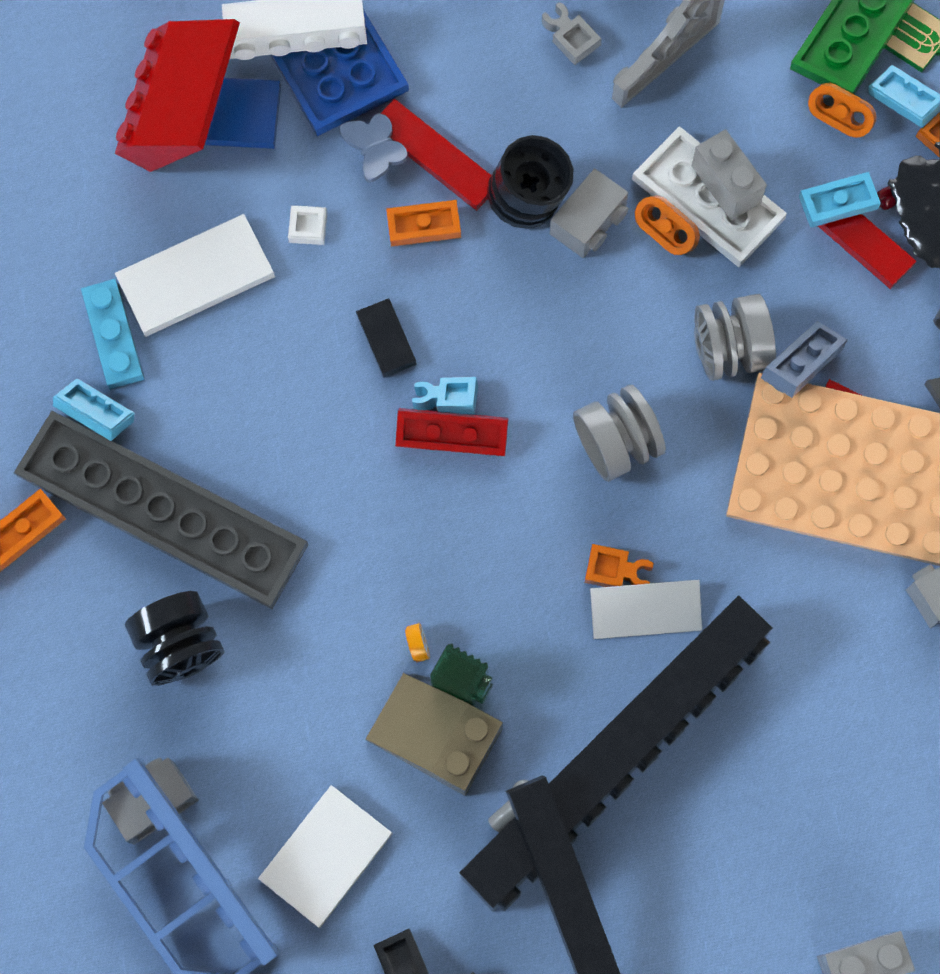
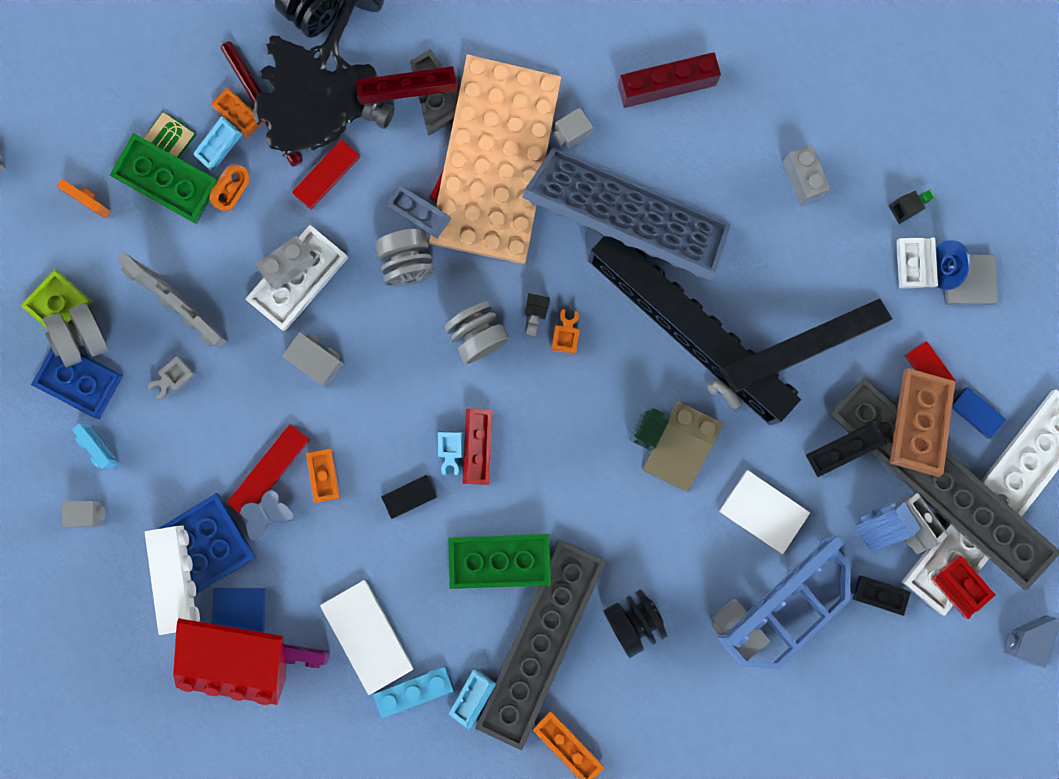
camera: 100 degrees left, 10 degrees up
(175, 201) = (312, 657): none -> magenta plate
(282, 454) = (499, 561): none -> green plate
(307, 225) = (325, 559): white tile -> none
(417, 642) = (624, 461): light orange tile -> none
(530, 181) = (285, 390): black wheel -> none
(646, 609) = (592, 313): white sticker -> none
(656, 526) = (536, 309): none -> pearl dark grey piece
(667, 227) = (322, 307): orange plate -> none
(798, 663) = (628, 213): none -> sand blue plate
(839, 199) = (300, 188): medium azure plate -> none

